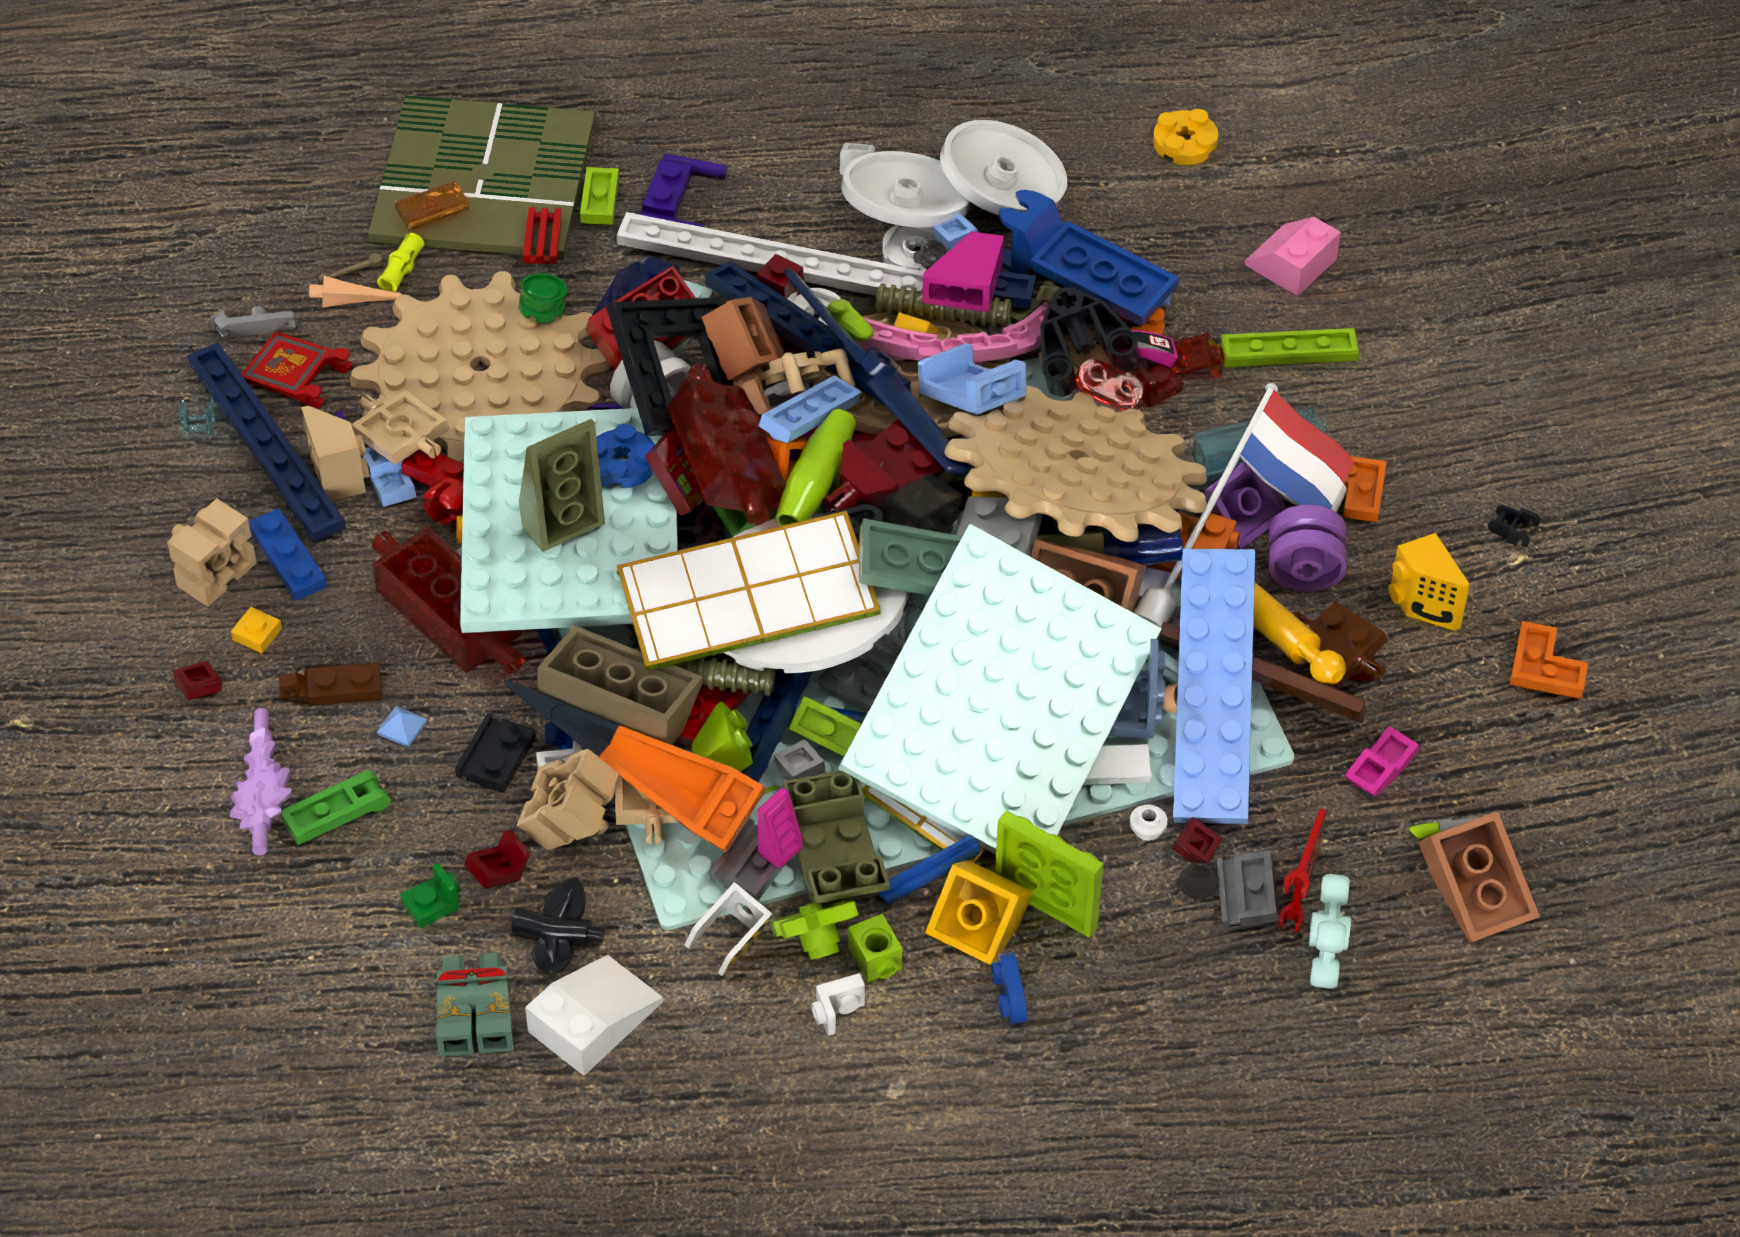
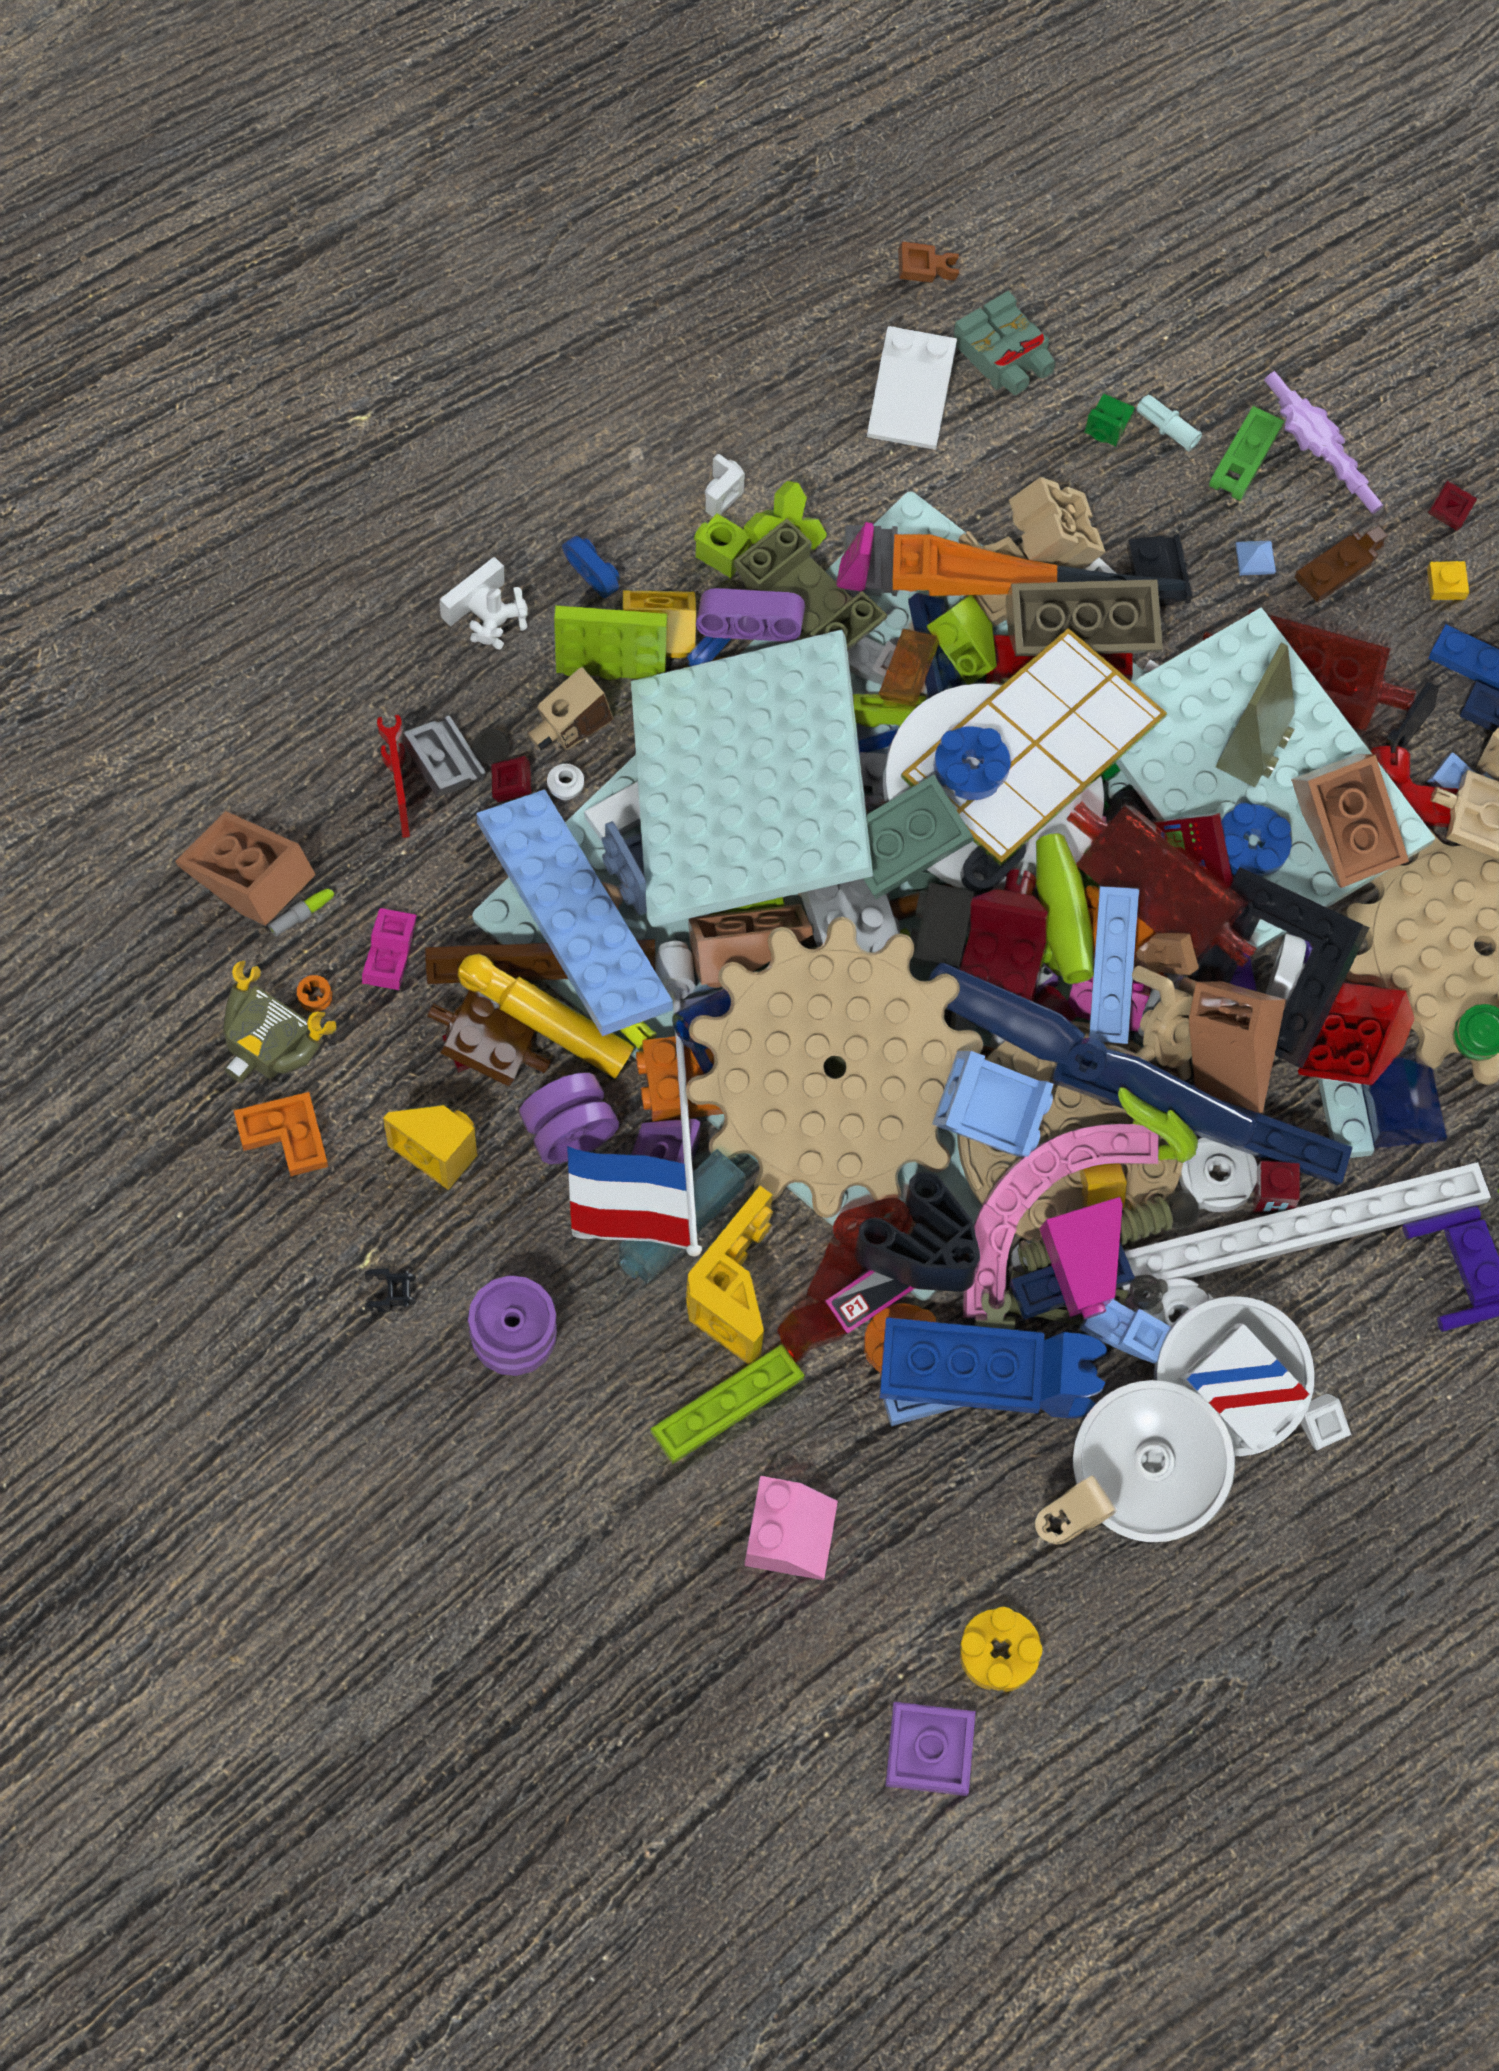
camera: 145 degrees right, 15 degrees up
(379, 867) = (1169, 422): none -> light aqua axle
(397, 529) = (1416, 716): none -> black piece
(489, 1130) = (921, 264): none -> dark orange plate
(500, 863) = (1078, 465): dark red bracket -> none
(522, 424) = (1351, 818): none -> nougat slope
(558, 926) = (989, 440): black plant -> none
(731, 902) = (863, 509): white piece -> none
(793, 736) = (908, 667): none -> clear orange plate
(814, 568) = (976, 743): none -> blue plate
(903, 843) = (750, 614): none -> medium lavender beam
(914, 163) = (1246, 1386): none -> panel
(1075, 149) = (1084, 1506): none -> tan piece
(1121, 851) = (571, 712): none -> tan torso
(1134, 1012) = (483, 597): none -> white piece
(1255, 367) = (722, 1291): none -> yellow bracket
(1271, 111) = (930, 1749): none -> medium lavender tile
(1329, 931) = (345, 723): light aqua gear -> none
(1364, 489) = (567, 1260): orange plate -> none
(1432, 444) = (512, 1303): none -> medium lavender wheel
(1466, 768) = (306, 984): none -> orange bush
(1522, 731) = (266, 1032): none -> olive torso

